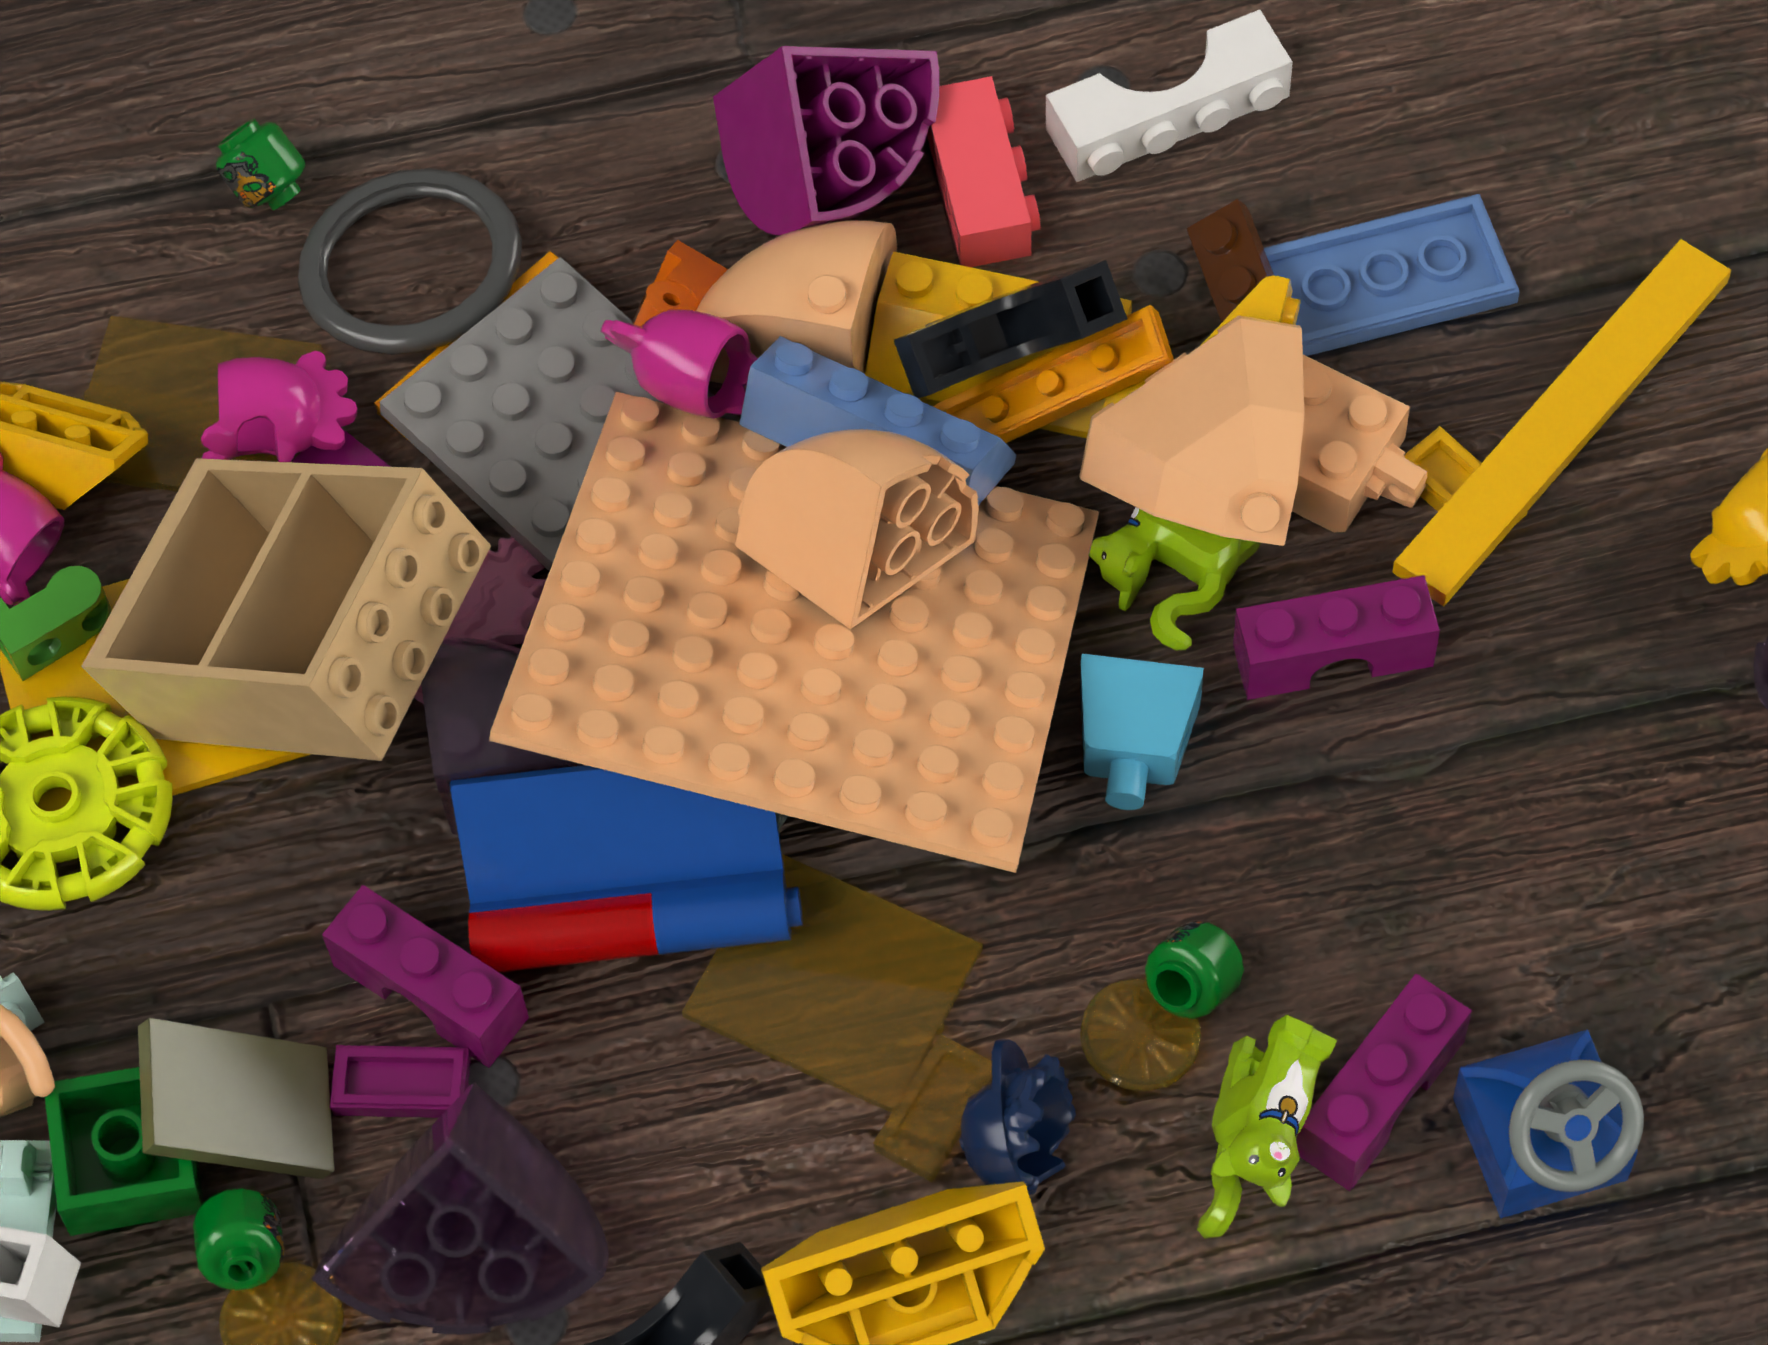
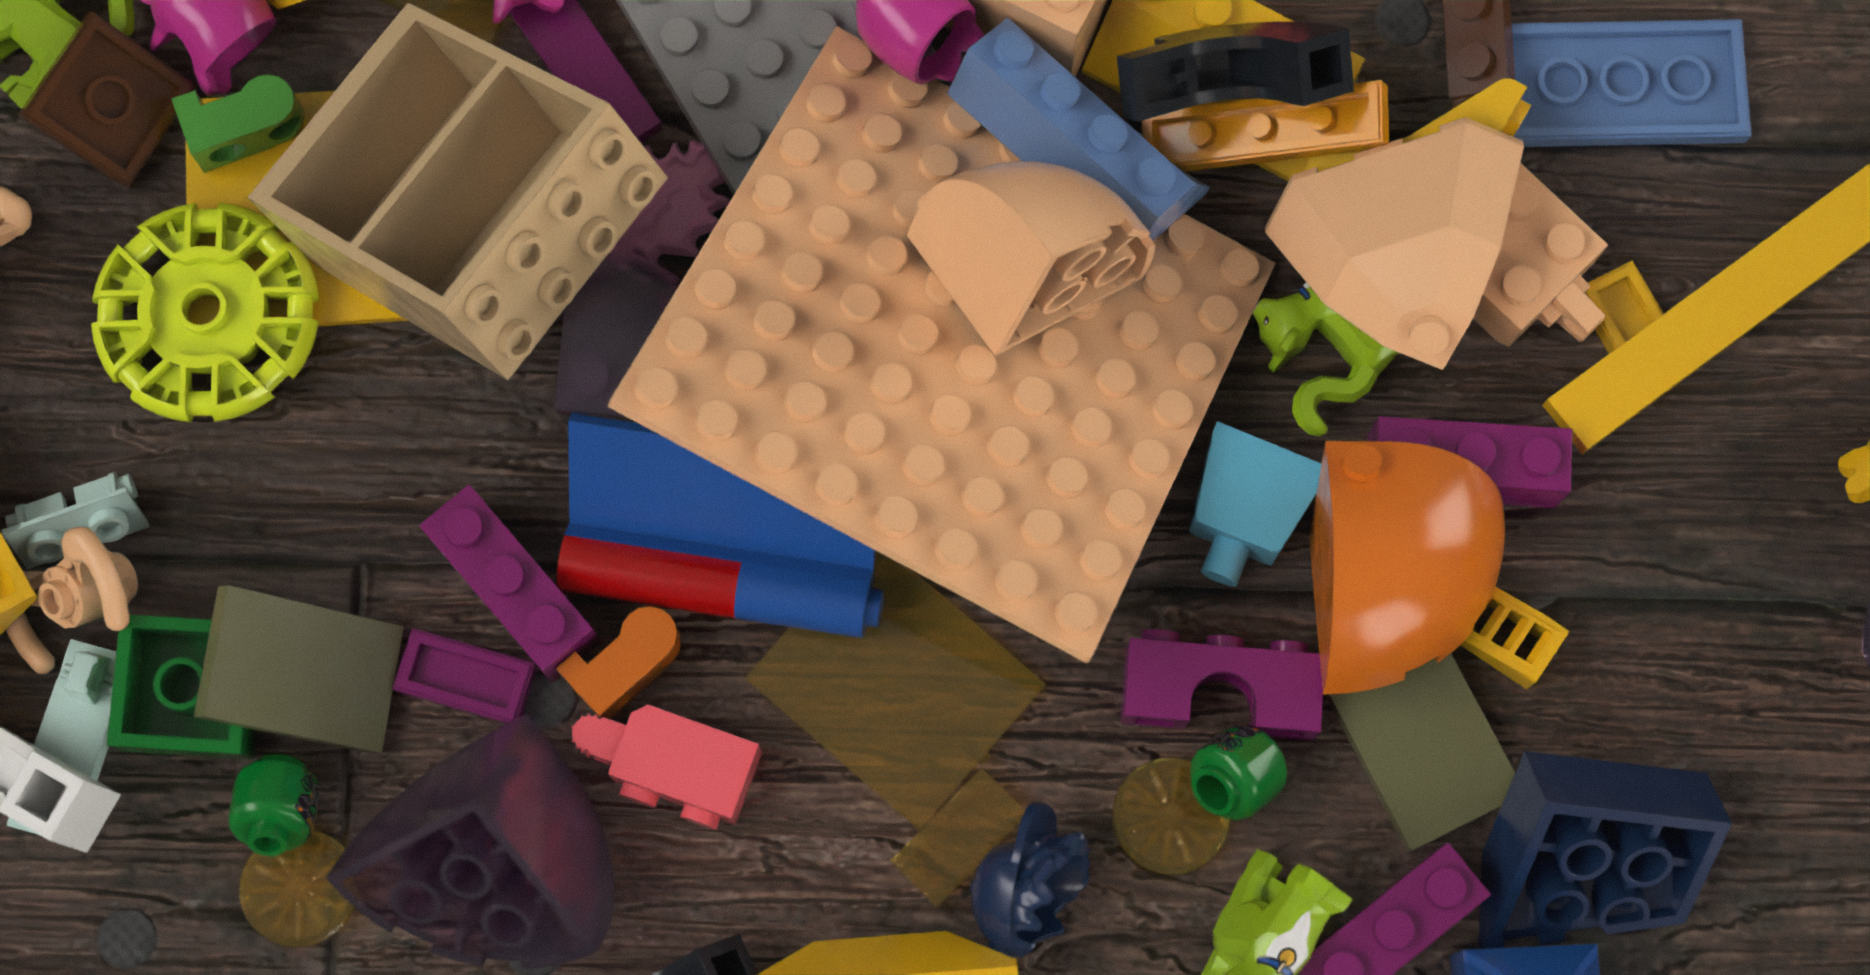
camera: 10 degrees right, 15 degrees up
(558, 1026) = (627, 665): none -> orange leg
(630, 1101) = (673, 761): none -> coral hinge
(1205, 880) = (1278, 683): none -> magenta arch
(1291, 725) = (1399, 558): none -> orange brick
(1364, 900) = (1426, 751): none -> olive tile
(1420, 808) = (1527, 620): none -> yellow slope
(1565, 950) = (1597, 848): none -> dark blue wedge

